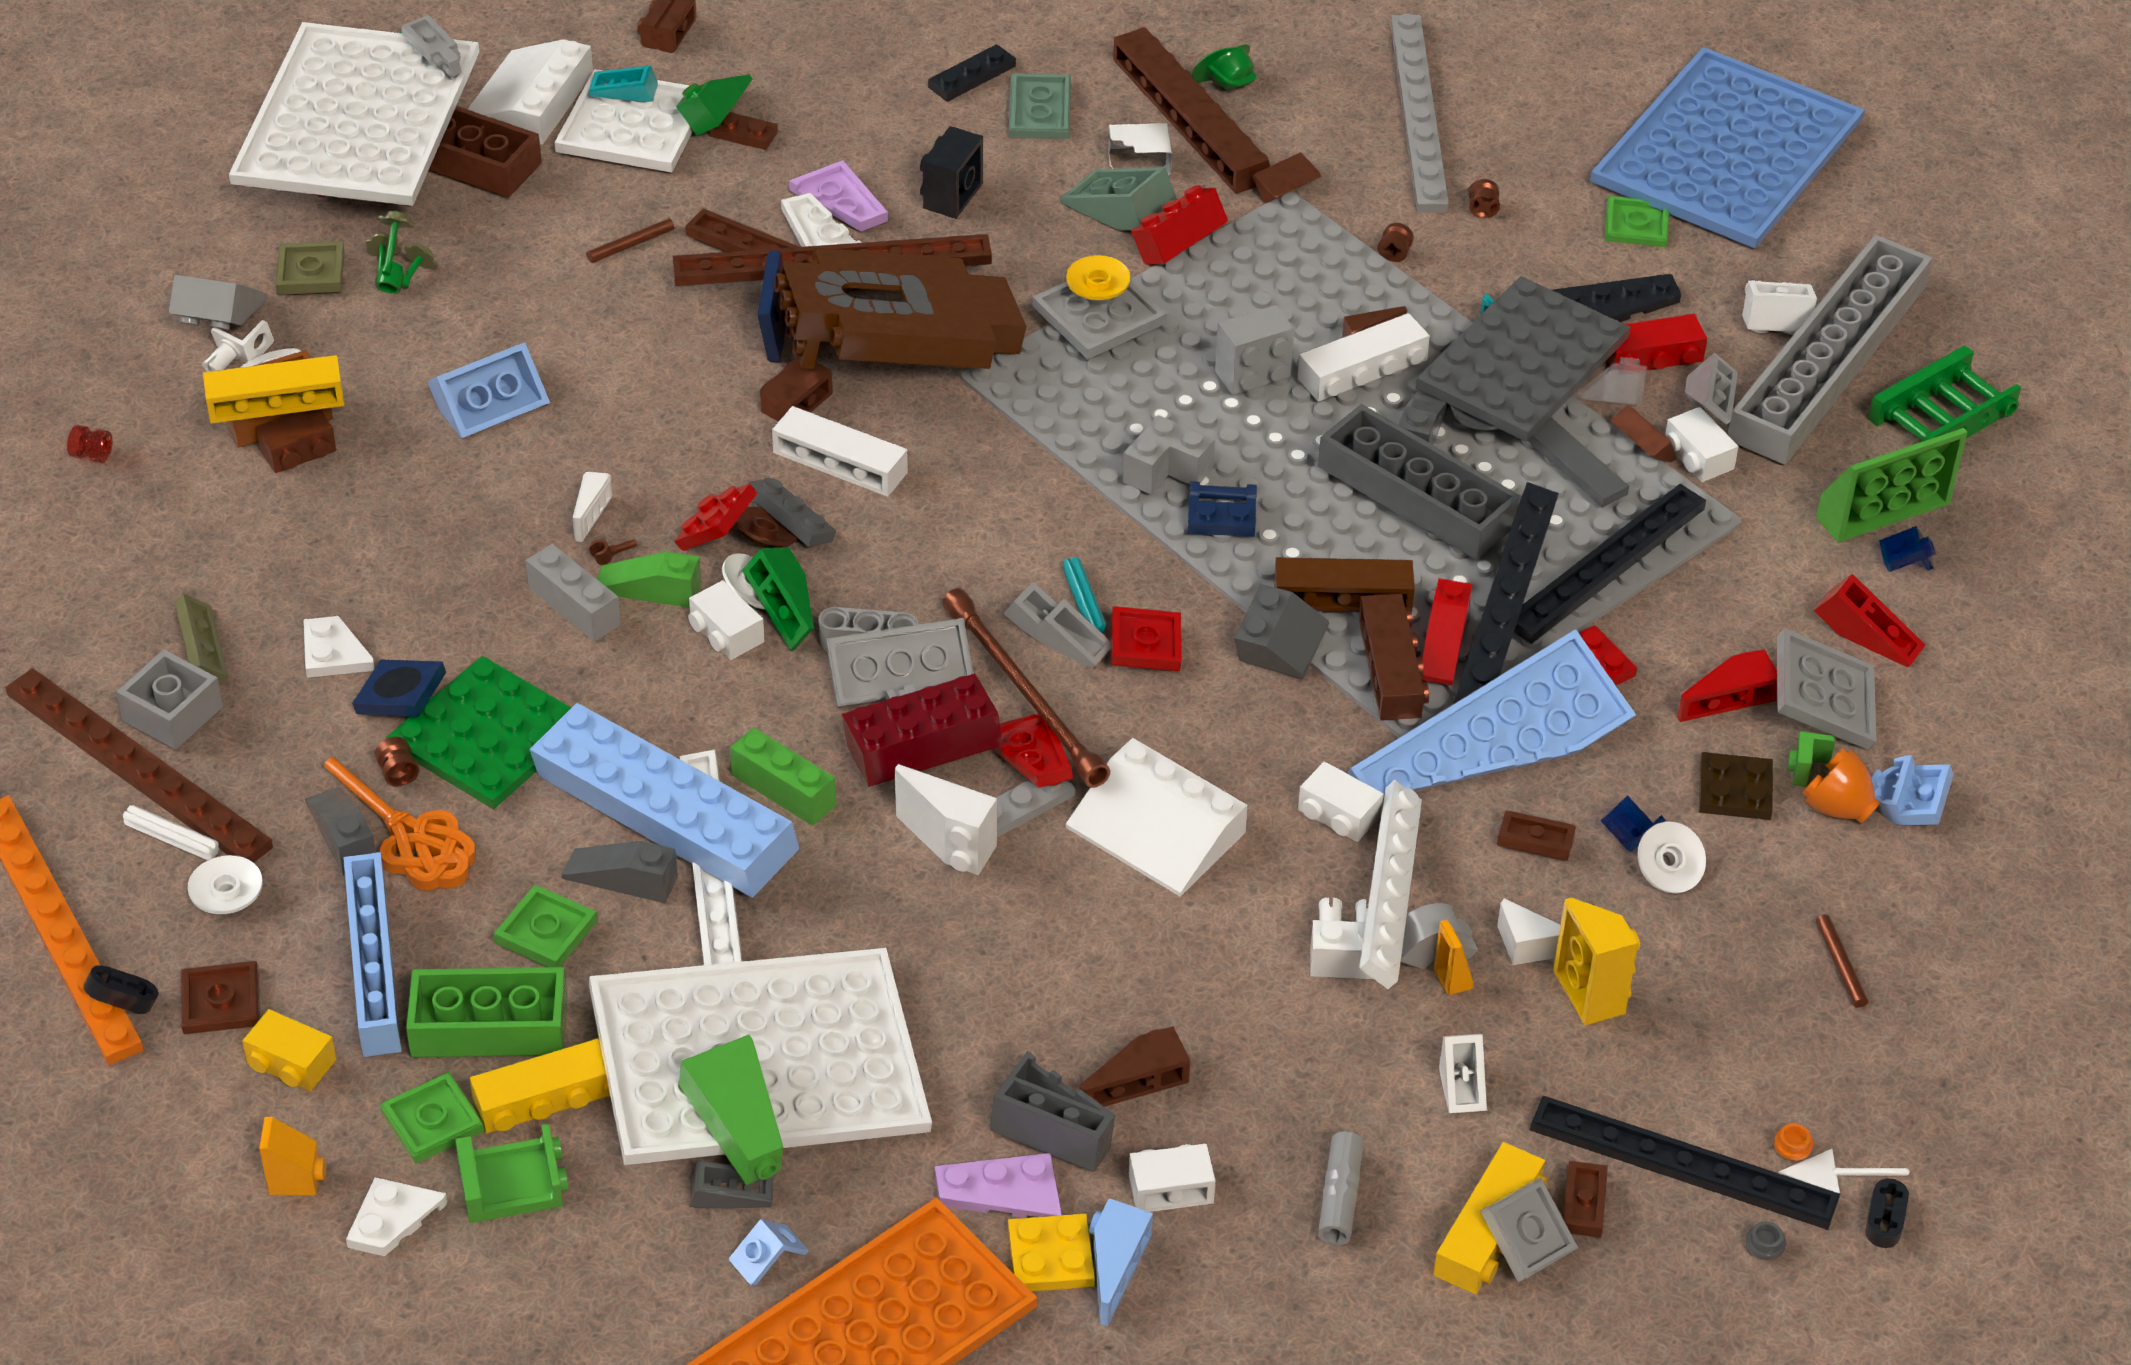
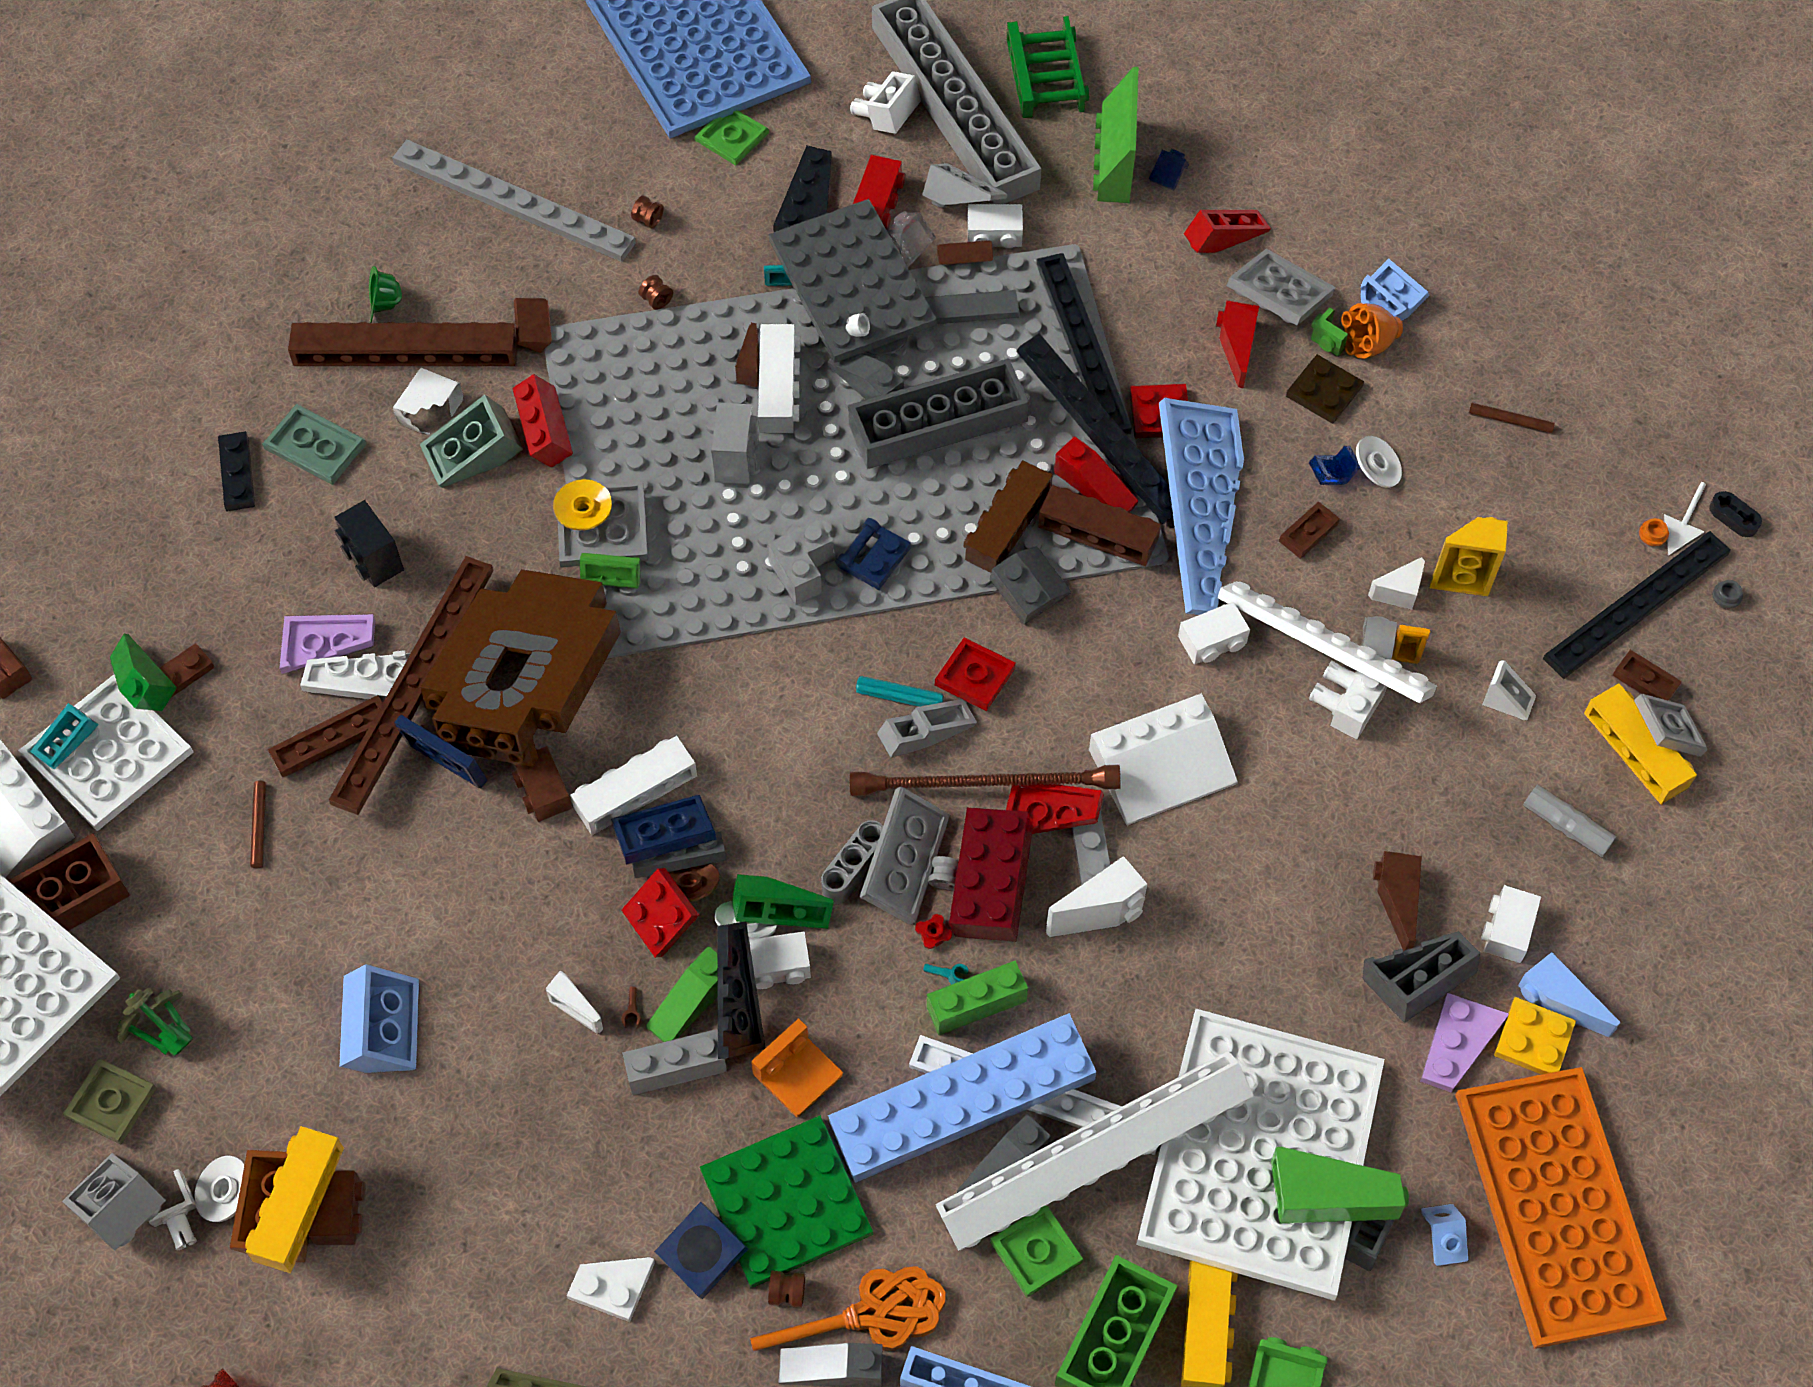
camera: 60 degrees left, 15 degrees up
(624, 675) = (795, 1069): none -> orange bracket
(655, 595) = (738, 1004): none -> black wing
(667, 909) = (1094, 1150): none -> white brick
(802, 750) = (946, 972): none -> teal hand
(806, 487) = (663, 829): none -> dark blue tile
(832, 723) = (929, 939): none -> red plate
(1050, 334) = (610, 569): none -> bright green plate
(1465, 368) = (858, 325): none -> white hinge

